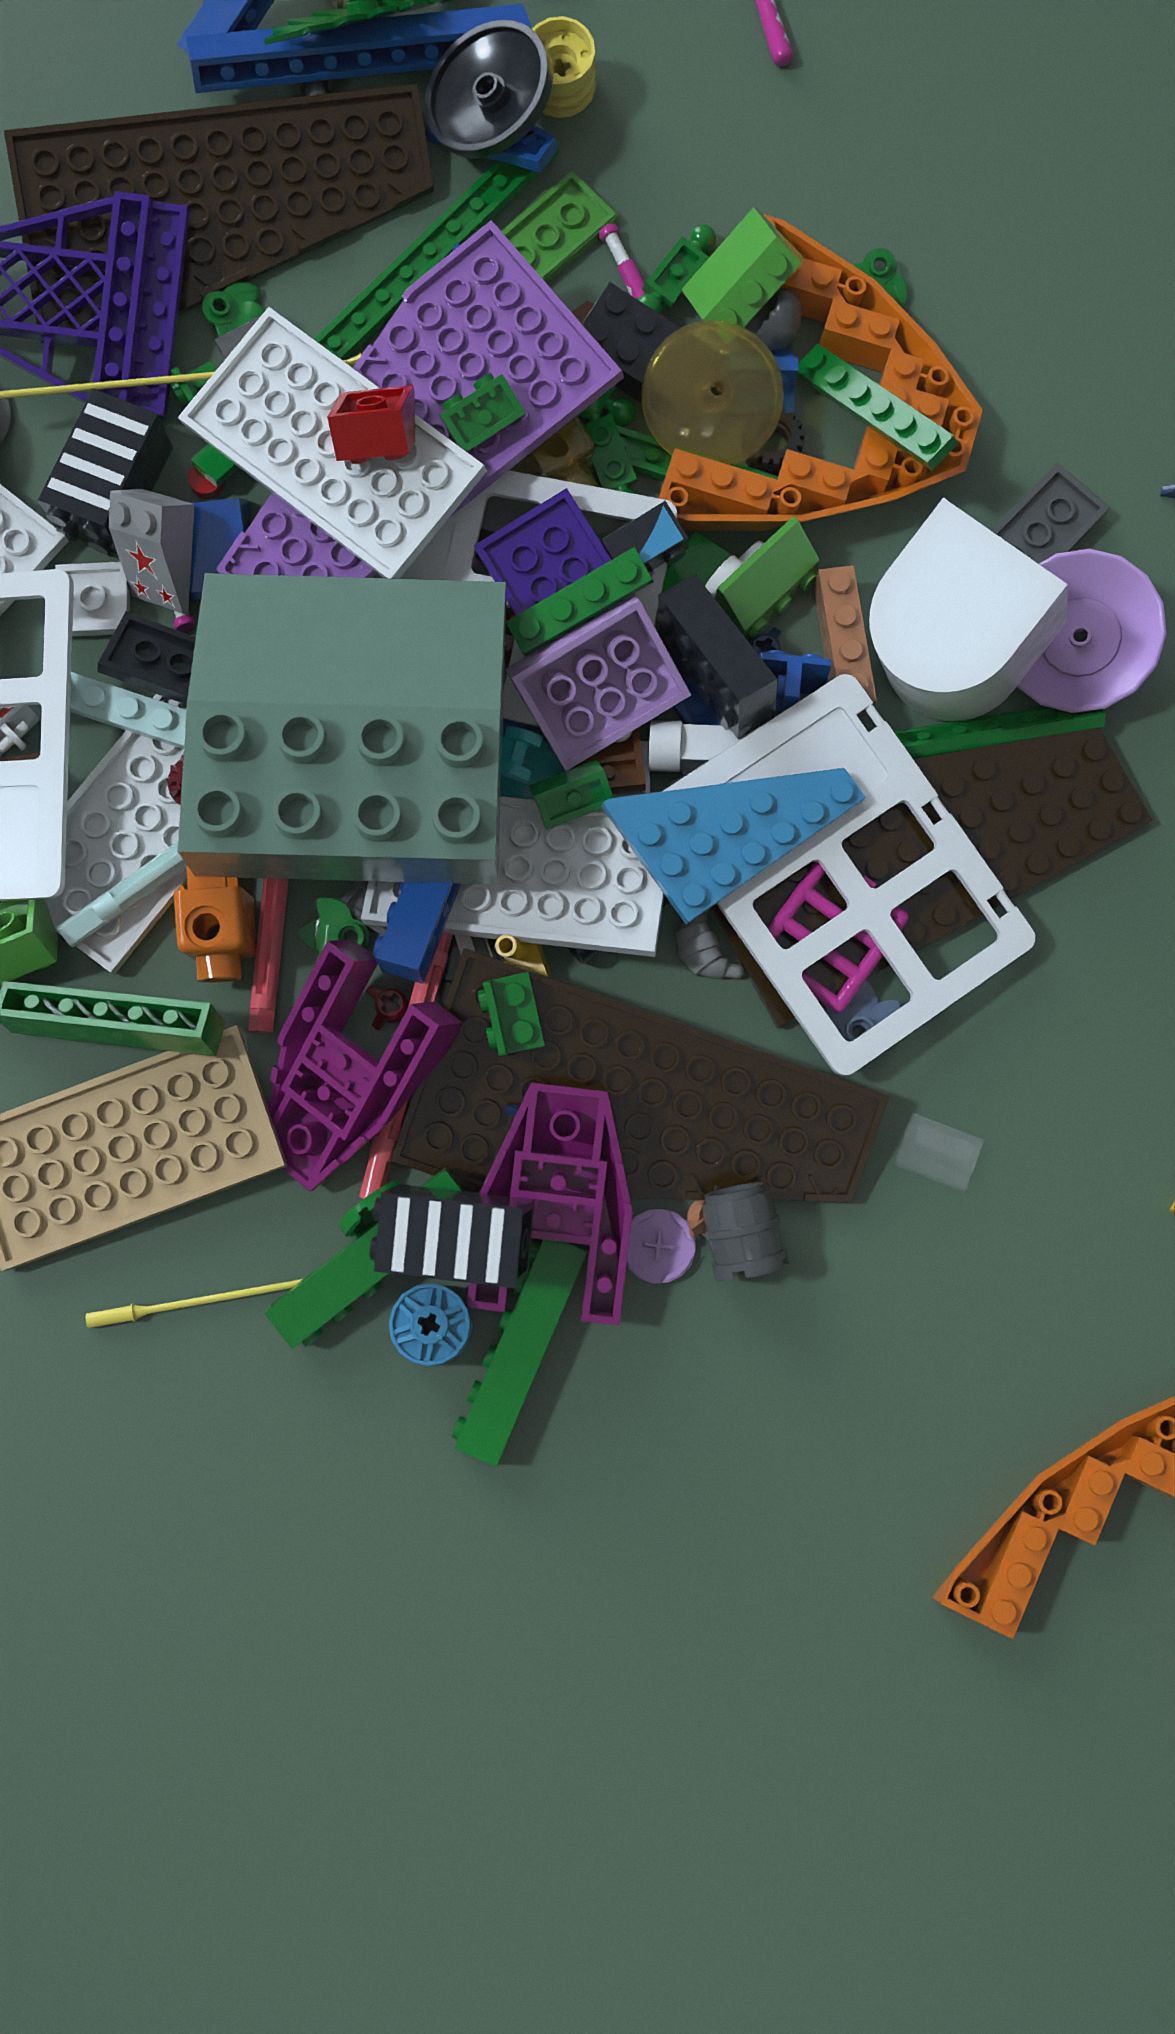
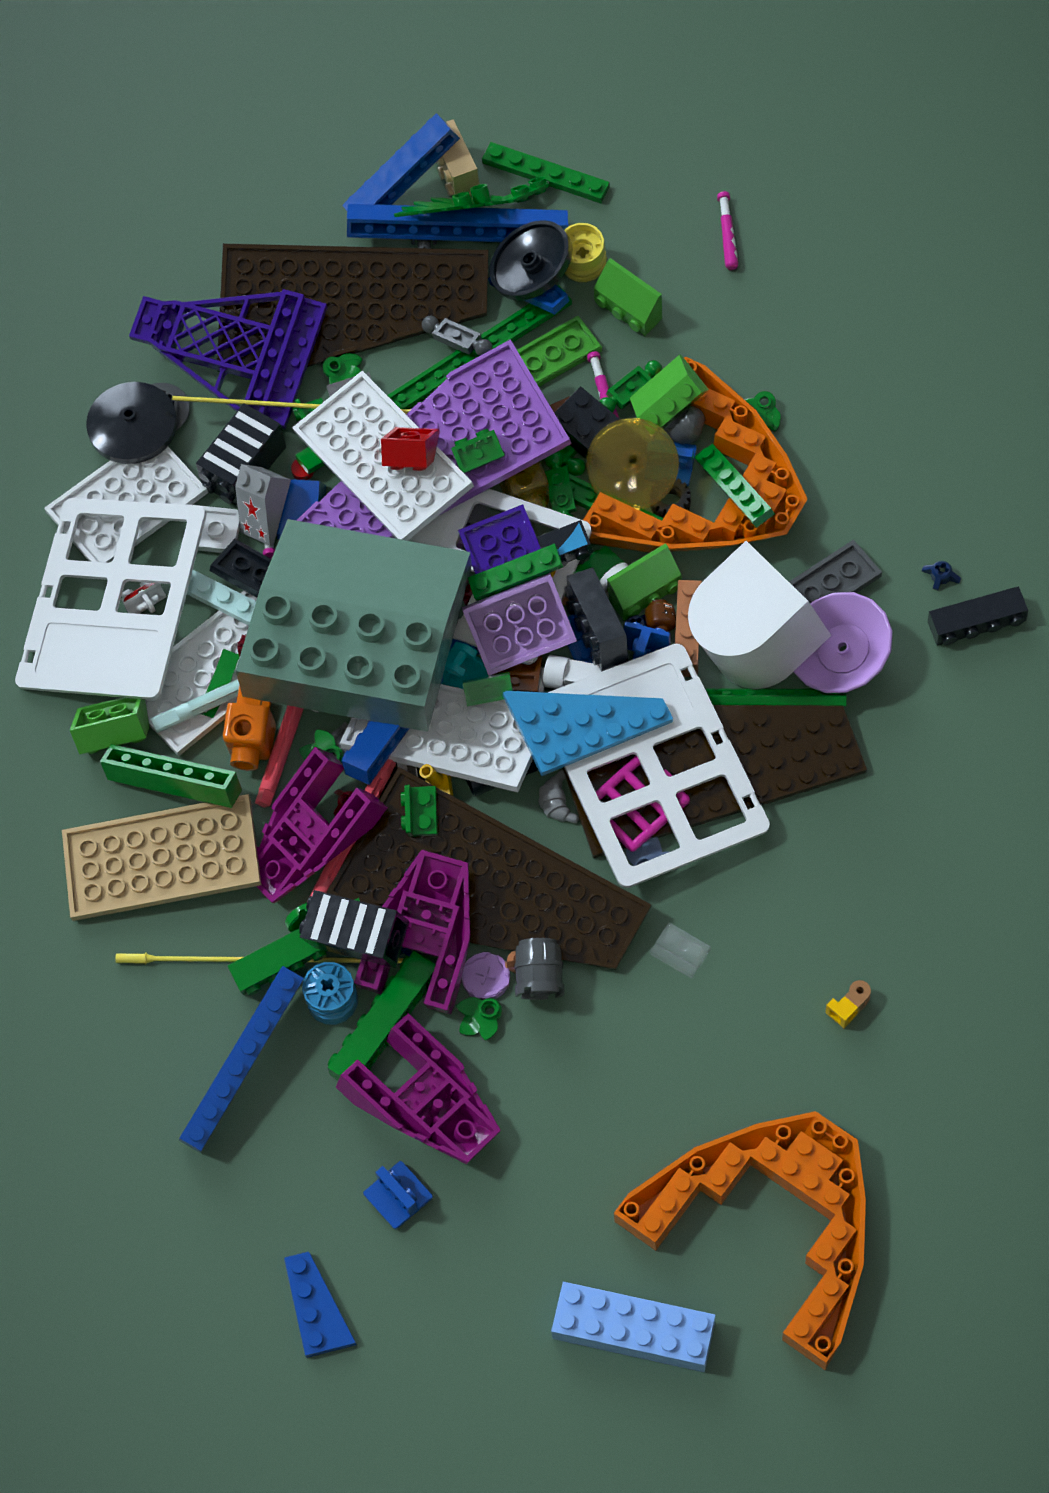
camera: 20 degrees right, 15 degrees down
(154, 836) = (222, 675): none -> green sticker
(318, 1464) = (241, 1059): none -> blue brick
(398, 229) = (456, 335): none -> dark grey plate
(522, 1841) = (317, 1314): none -> blue wing
(602, 1624) = (397, 1194): none -> blue bracket
(638, 1482) = (434, 1104): none -> magenta wedge
(644, 129) = (628, 298): none -> bright green slope
(659, 1318) = (476, 1019): none -> green plate
(799, 630) = (660, 615): none -> reddish brown head
(1004, 1770) = (633, 1326): none -> light blue brick

